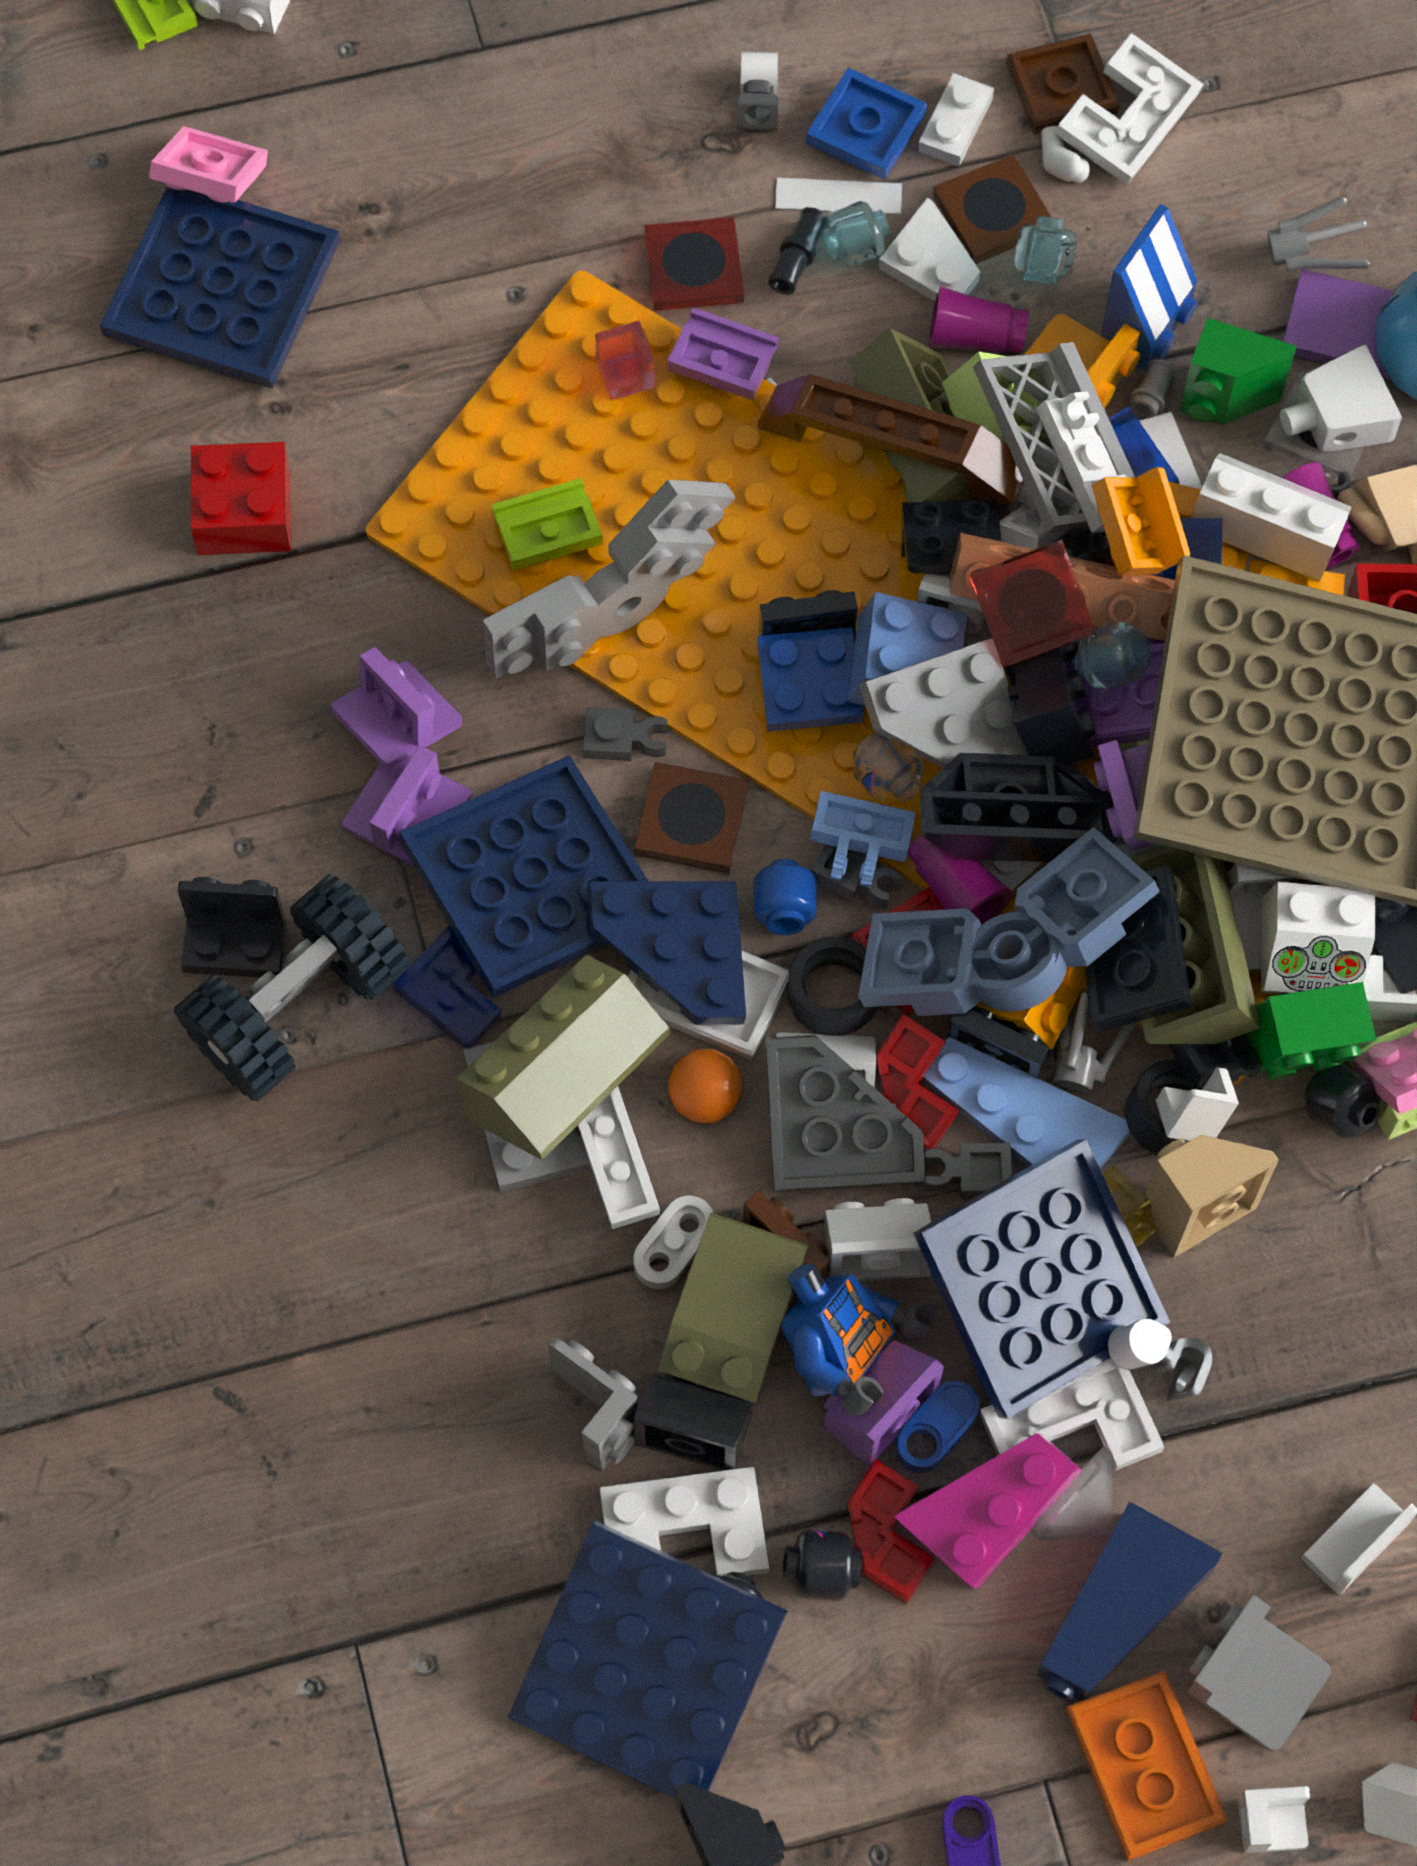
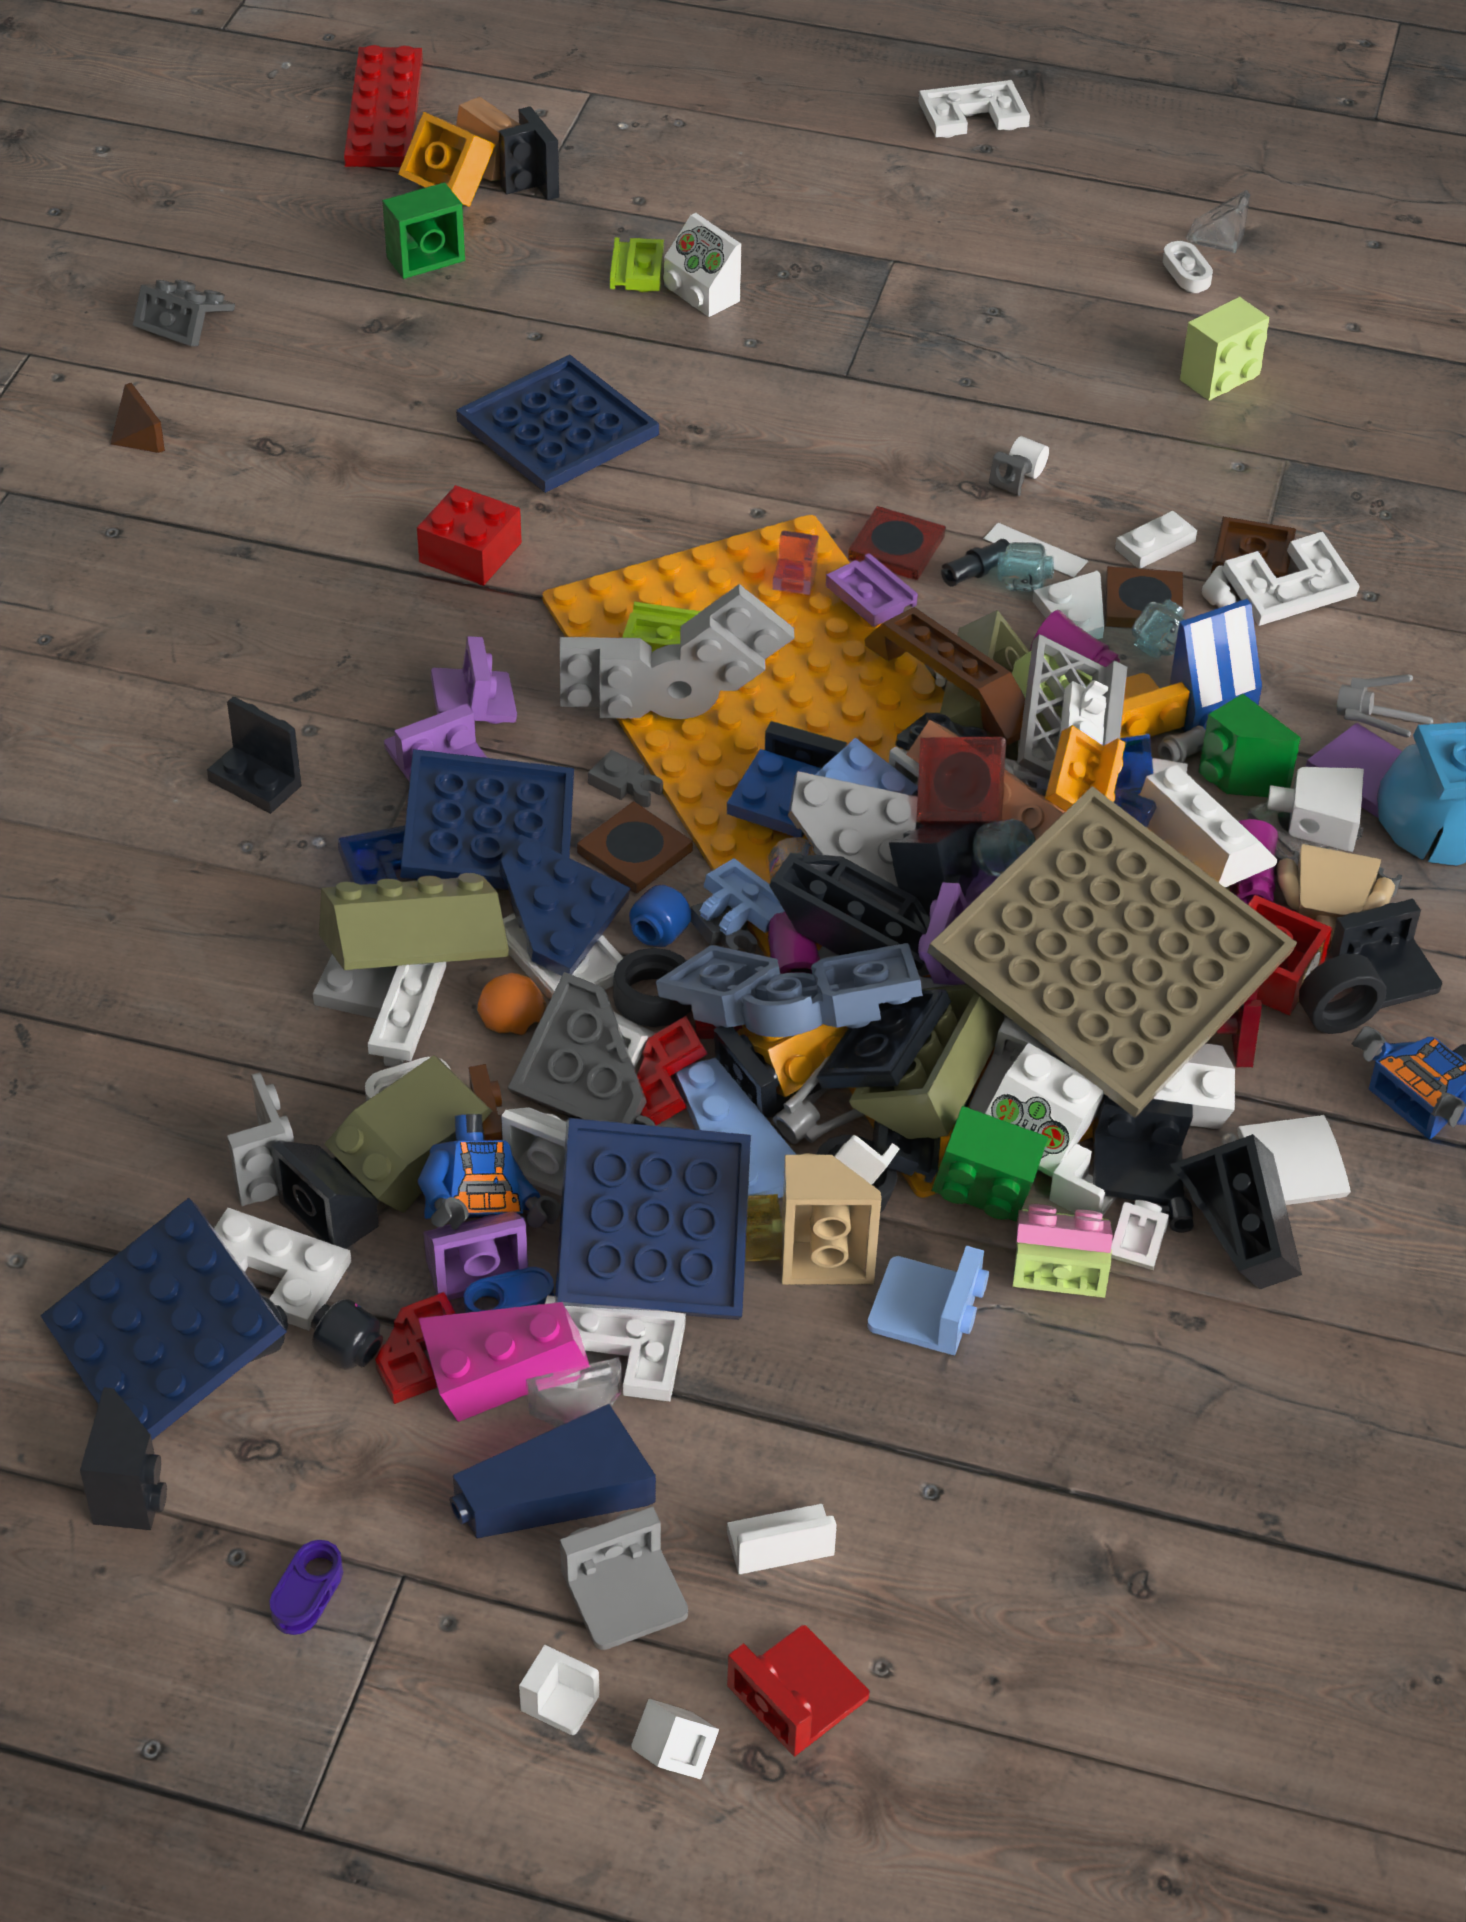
camera: 30 degrees right, 20 degrees down
(208, 164) = (599, 355): bright pink plate -> none
(339, 936) = (263, 799): black plate -> none
(866, 123) = (1085, 513): blue plate -> none
(1146, 1765) = (489, 1605): orange tile -> none
(1150, 1343) = (702, 1308): leg -> none
(1331, 1205) = (929, 1302): none -> light blue bracket
(1342, 1101) = (991, 1229): black head -> none

